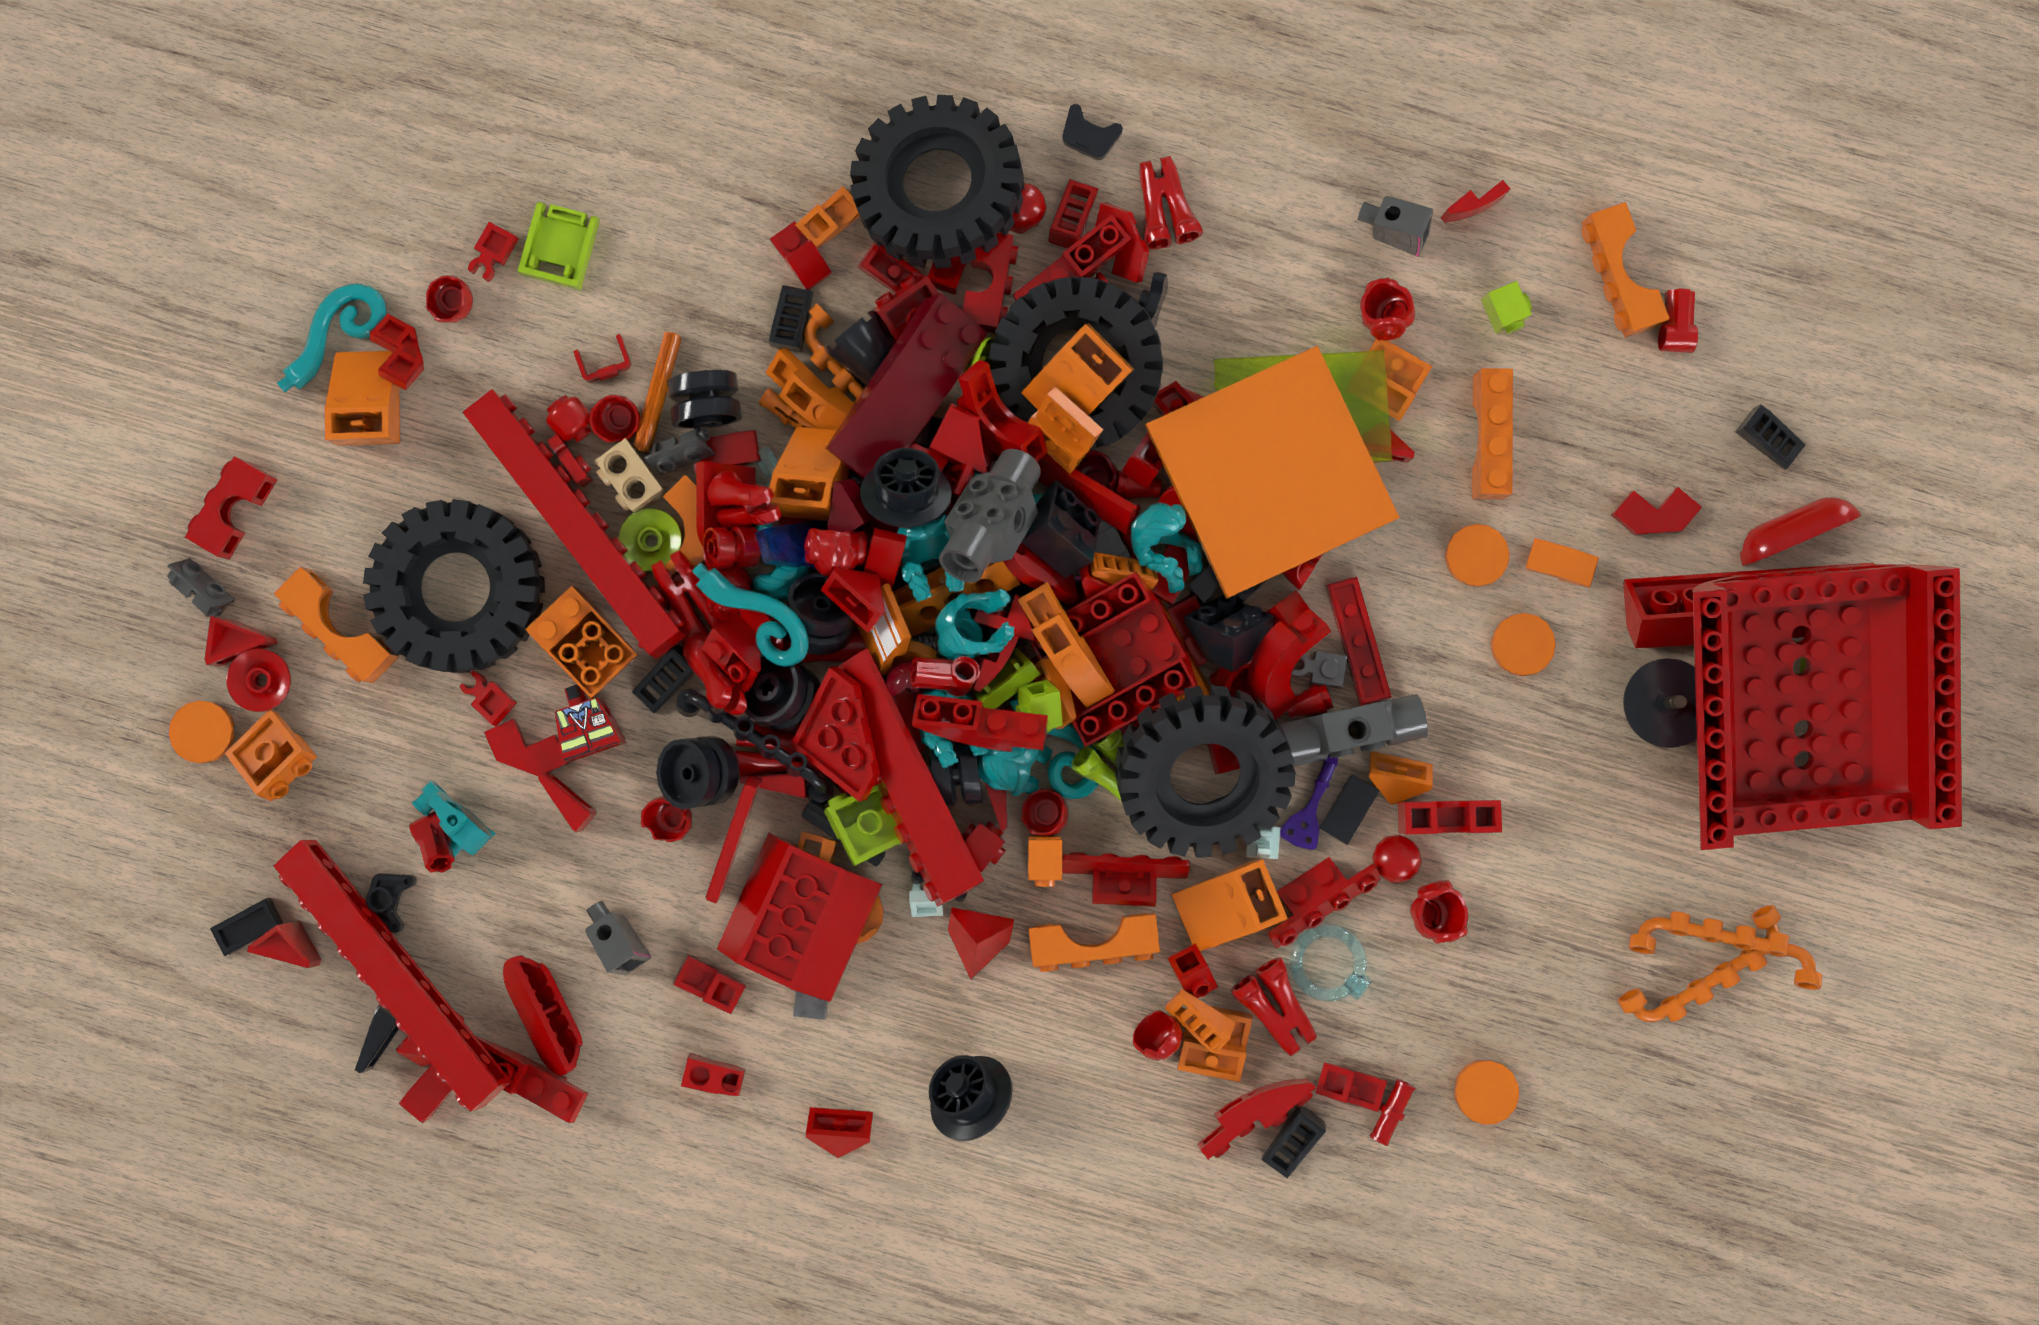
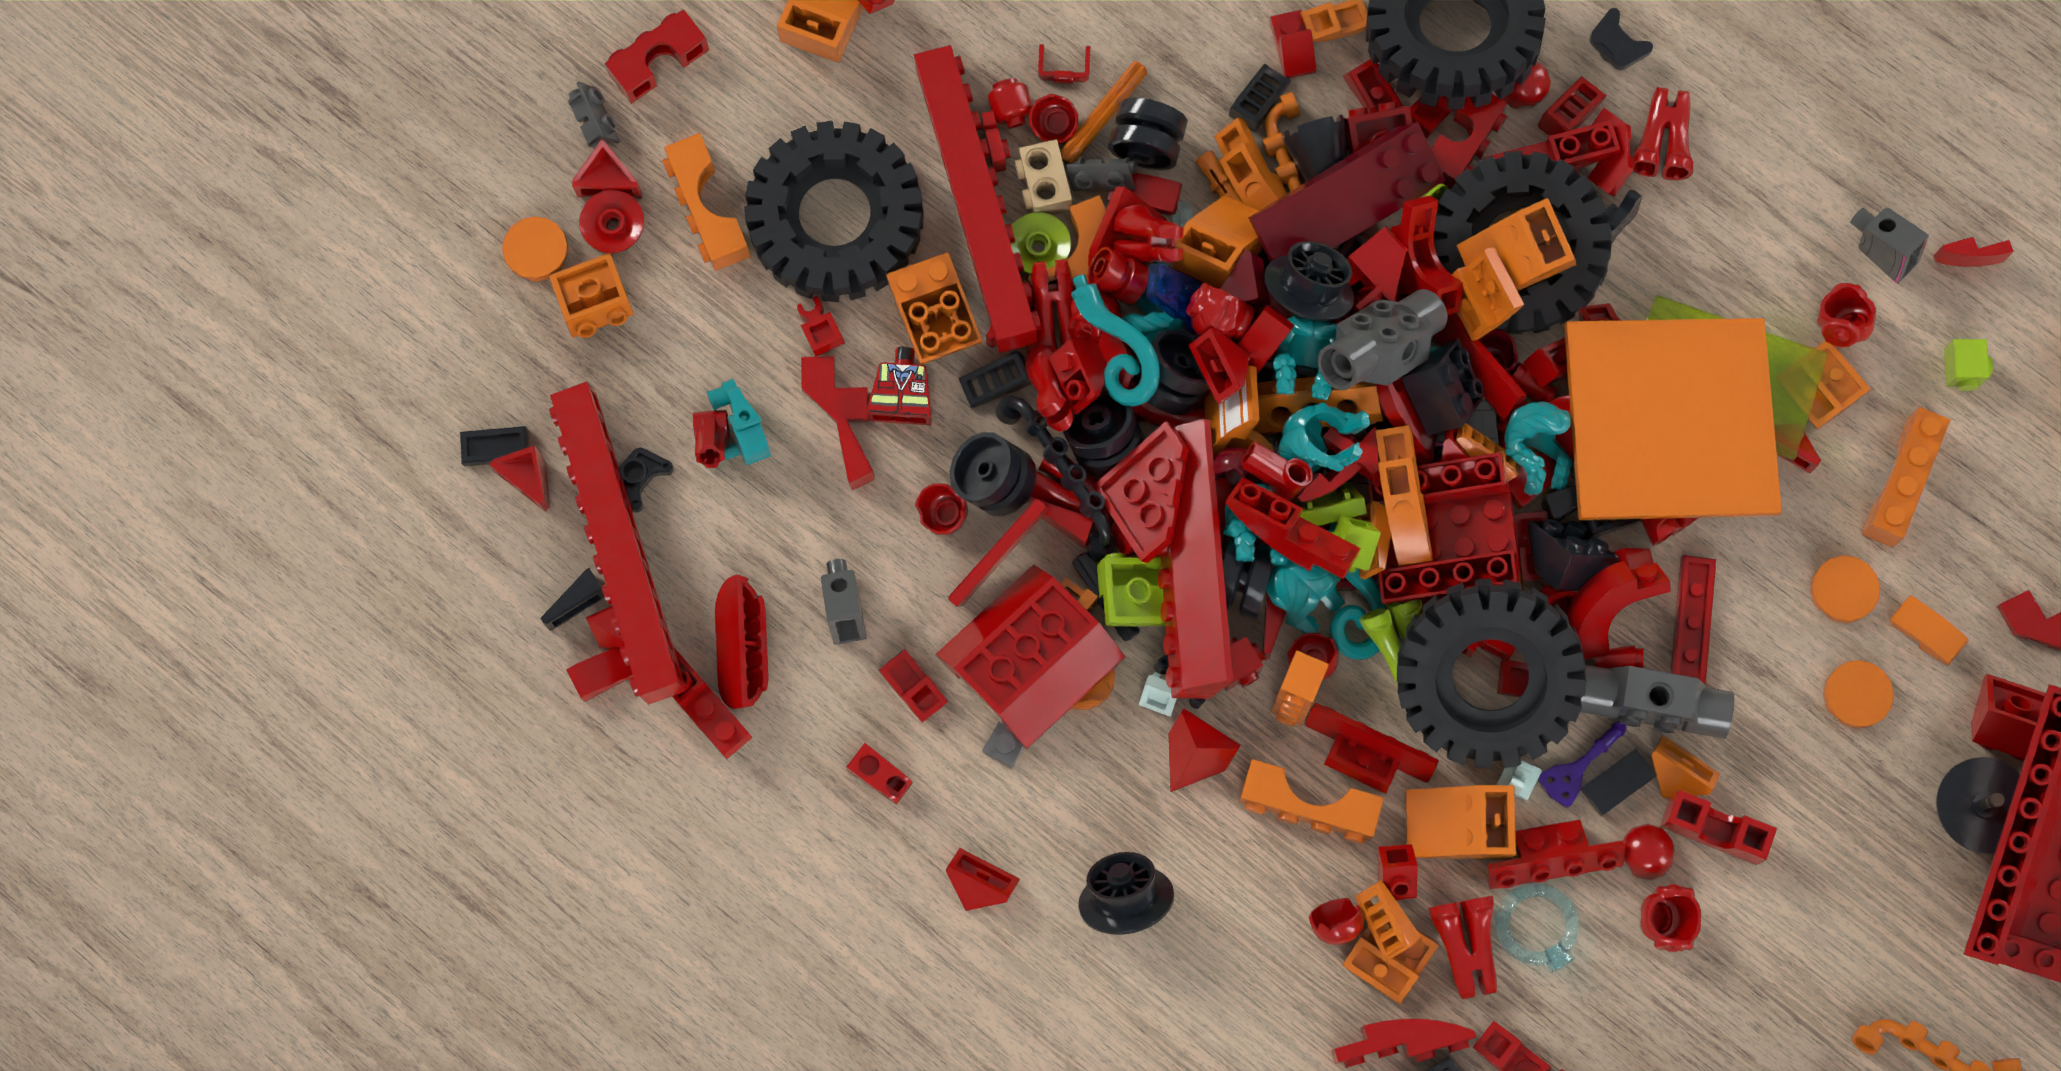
camera: 25 degrees right, 10 degrees down
(1324, 668) = (1646, 634): flat silver plate -> none

